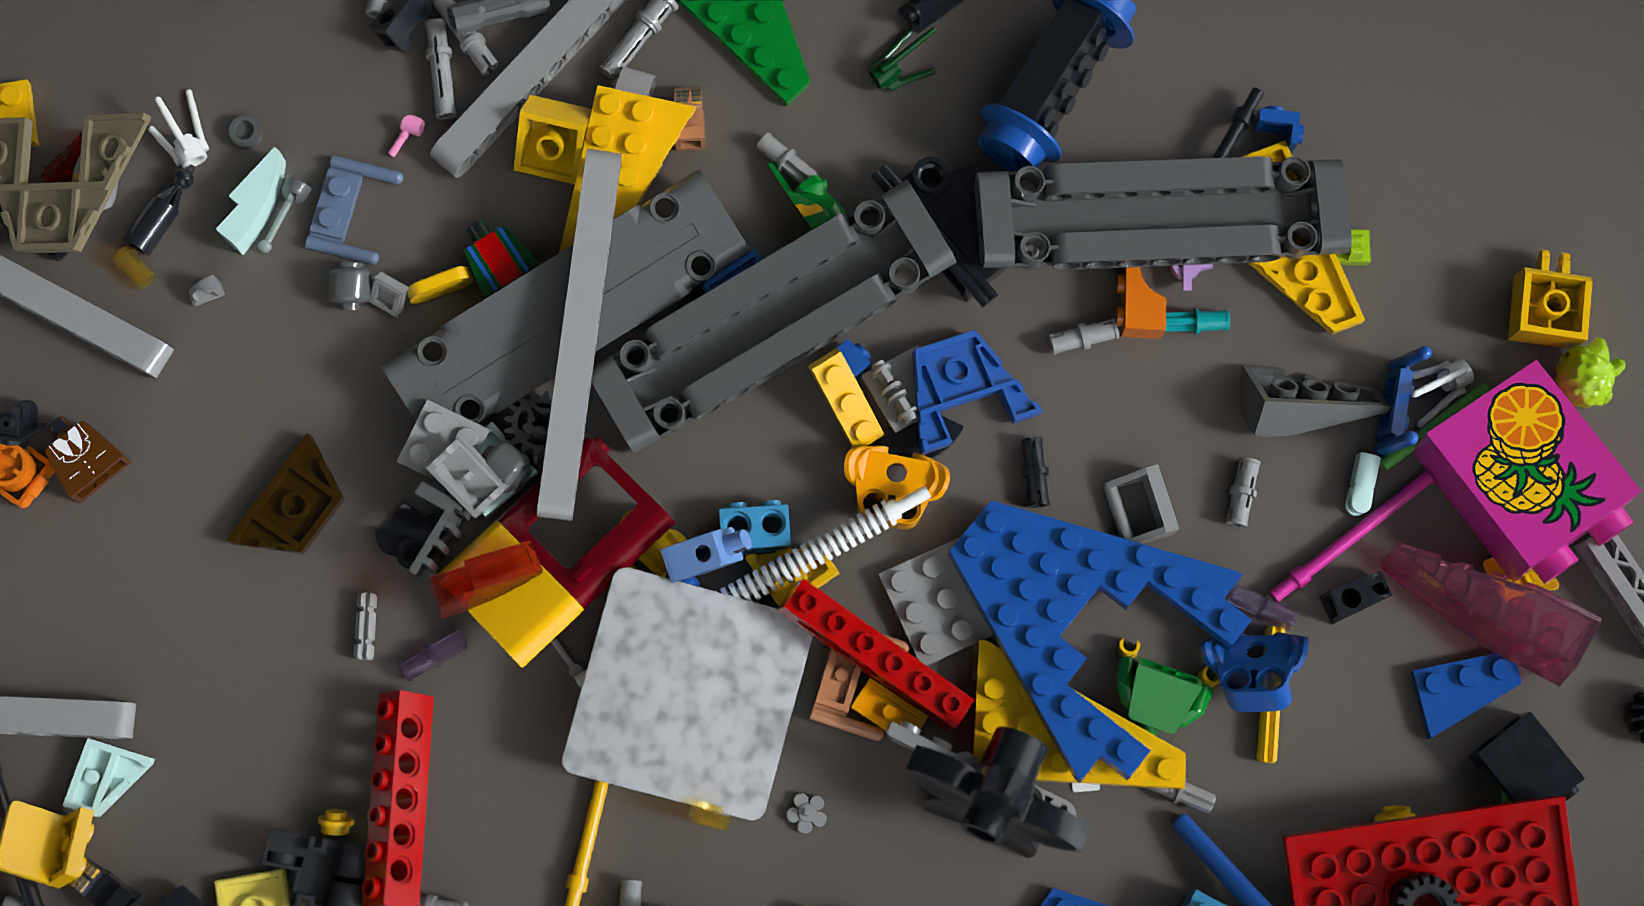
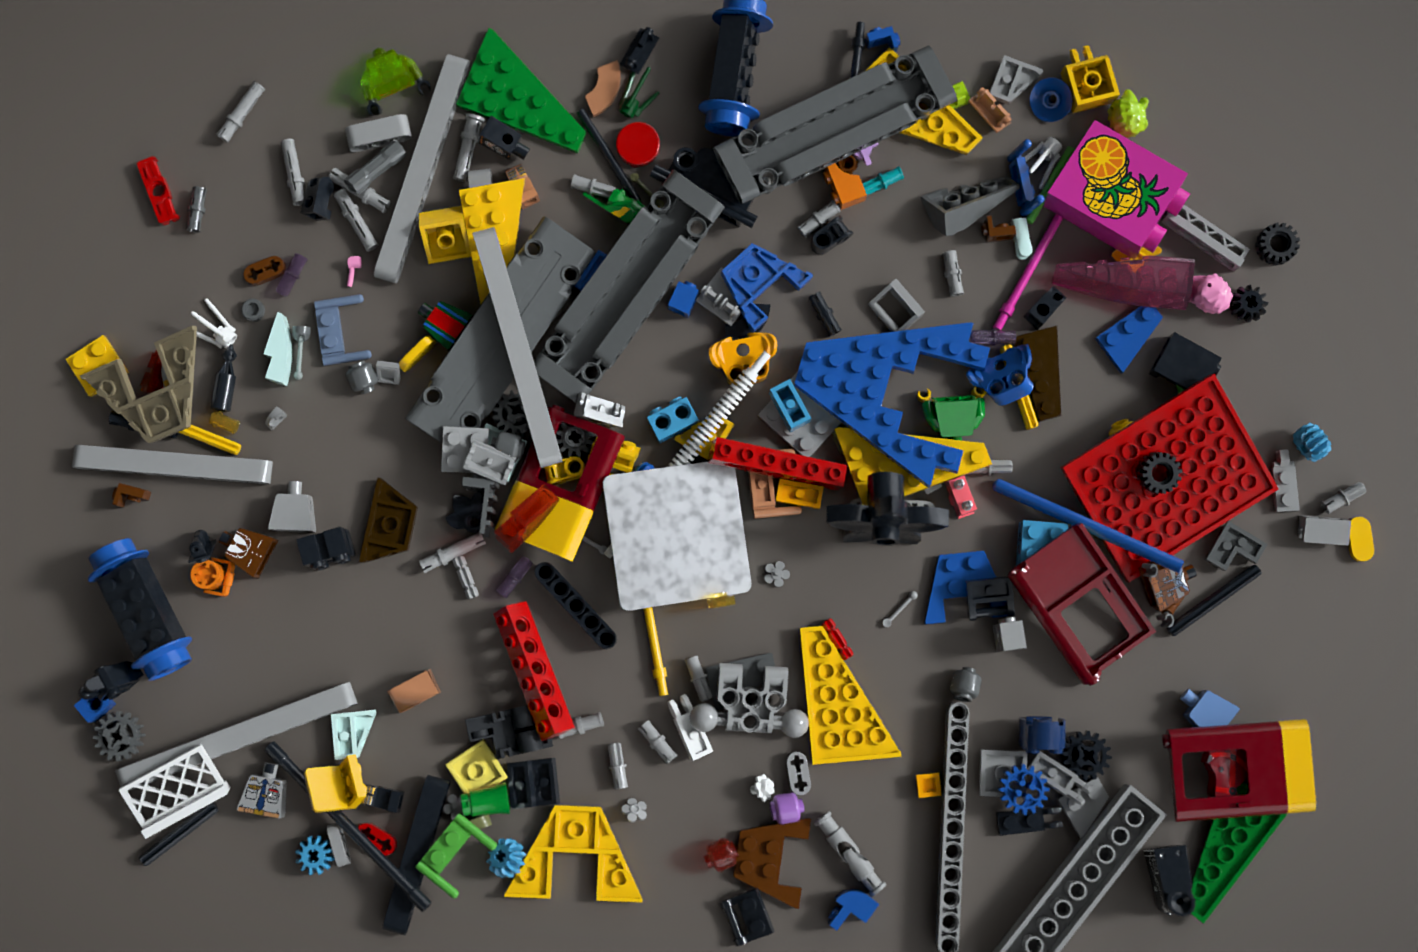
camera: 20 degrees left, 5 degrees up
(105, 283) = (212, 439): none -> yellow axle
(169, 429) = (293, 511): none -> light grey torso
(189, 500) = (326, 547): none -> black brick
(219, 756) = (414, 691): none -> nougat piece
(286, 81) = (267, 275): none -> reddish brown beam
(319, 106) = (291, 274): none -> clear purple axle
(335, 822) = (501, 699): yellow plate -> none
(359, 582) = (445, 555): none -> light grey pin
(489, 721) = (571, 595): none -> black beam
(565, 535) = (562, 471): none -> yellow piece
(594, 502) = (570, 445): none -> dark grey gear
(656, 472) = (599, 411): none -> hinge
(684, 31) = (496, 133): none -> black torso
(705, 553) = (651, 447): medium blue torso -> none
(827, 125) = (608, 154): none -> black piece
(846, 399) = (693, 318): yellow plate -> none
(850, 173) = (635, 178): none -> olive hinge
(864, 35) = (606, 89): none -> nougat tile
(875, 128) = (638, 144): none -> red tile
(908, 737) = (817, 503): light grey hinge -> none
(928, 579) = (789, 405): none -> dark azure brick
(1096, 364) = (833, 233): none -> black piece
(1119, 817) = (960, 497): none -> coral piece
(1164, 275) = (852, 164): none -> reddish brown plate
(1316, 688) = (1044, 371): none -> dark brown wing
(1332, 463) = (1000, 233): none -> reddish brown bracket
(1393, 294) = (994, 115): none -> nougat hinge
(1442, 257) = (1013, 79): none -> light grey wing
(1470, 302) = (1041, 103): none -> blue dish
(1605, 679) = (1211, 293): none -> bright pink animal

